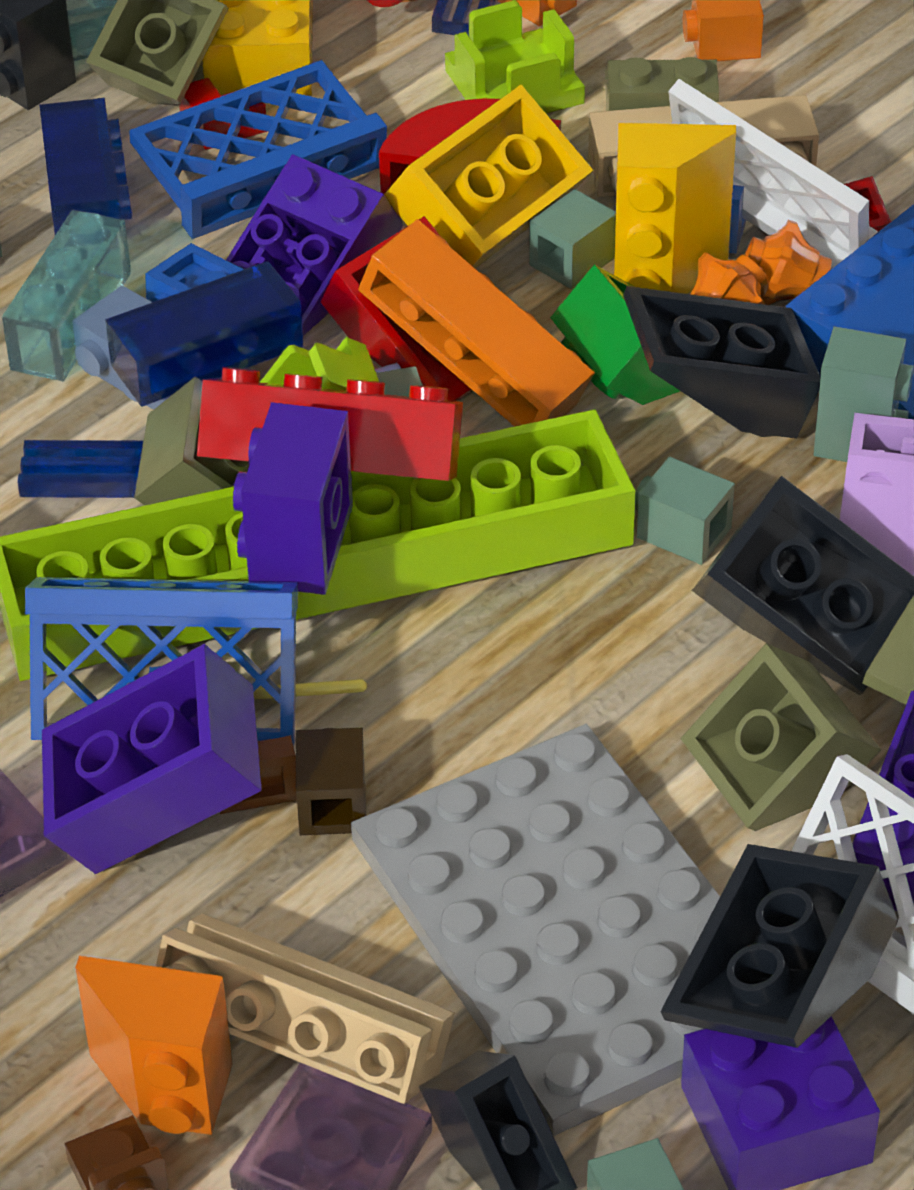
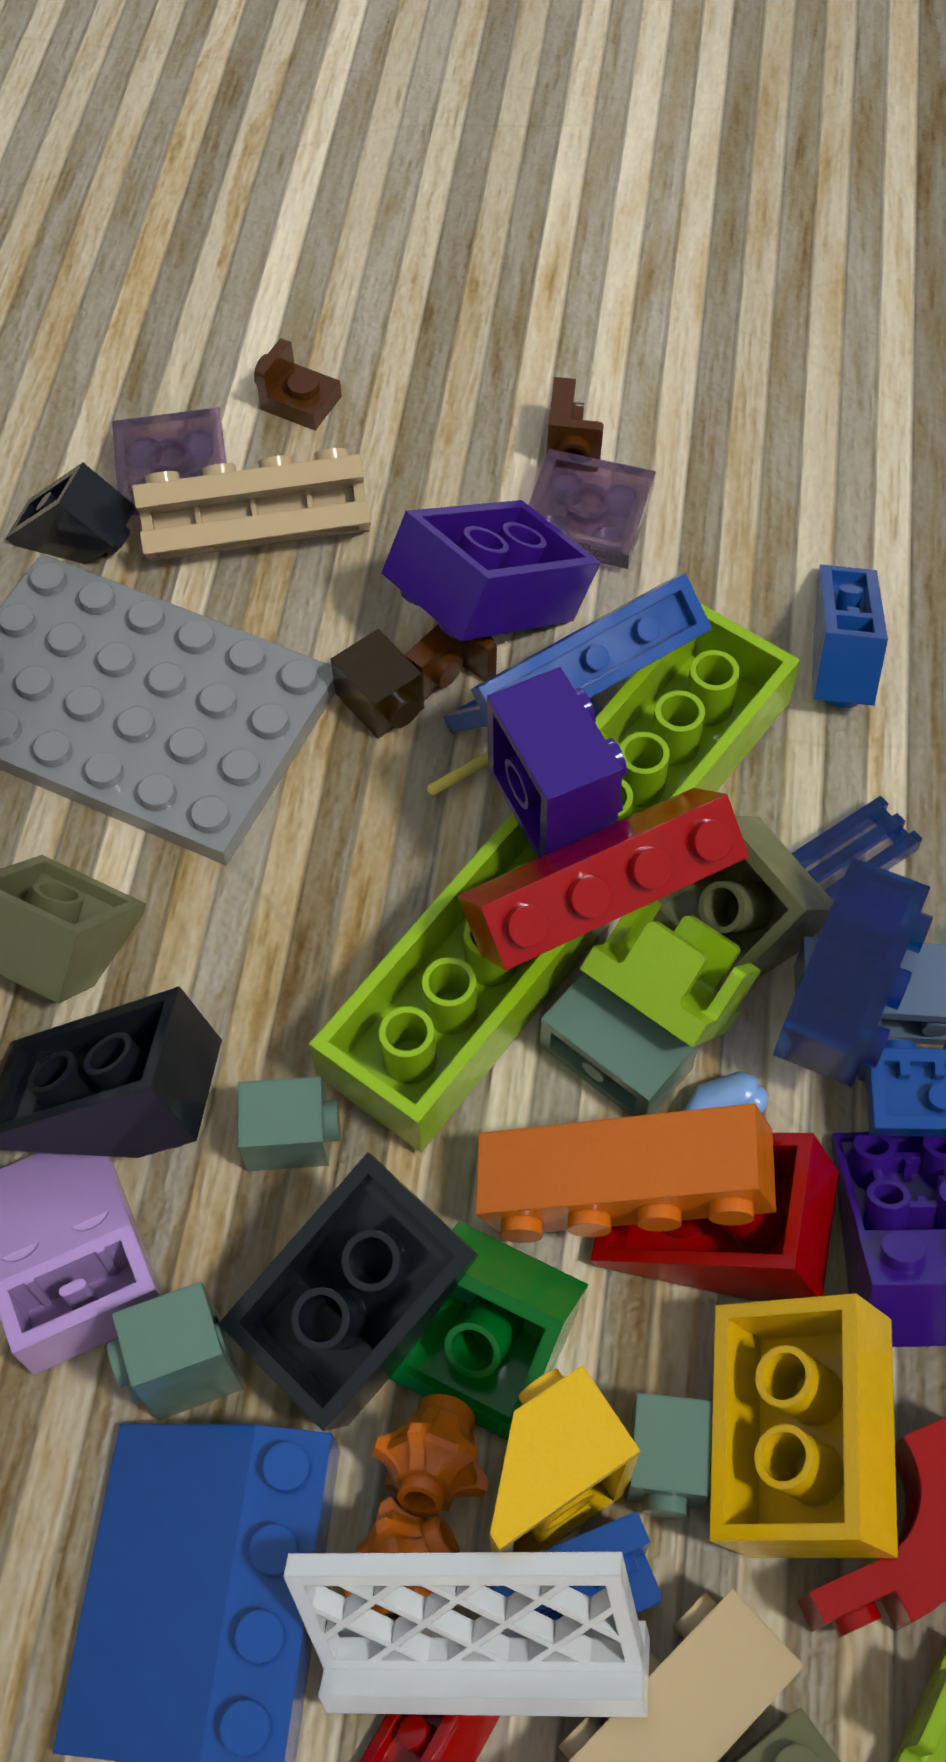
camera: 145 degrees right, 15 degrees up
(158, 1040) = (320, 407): orange slope -> none

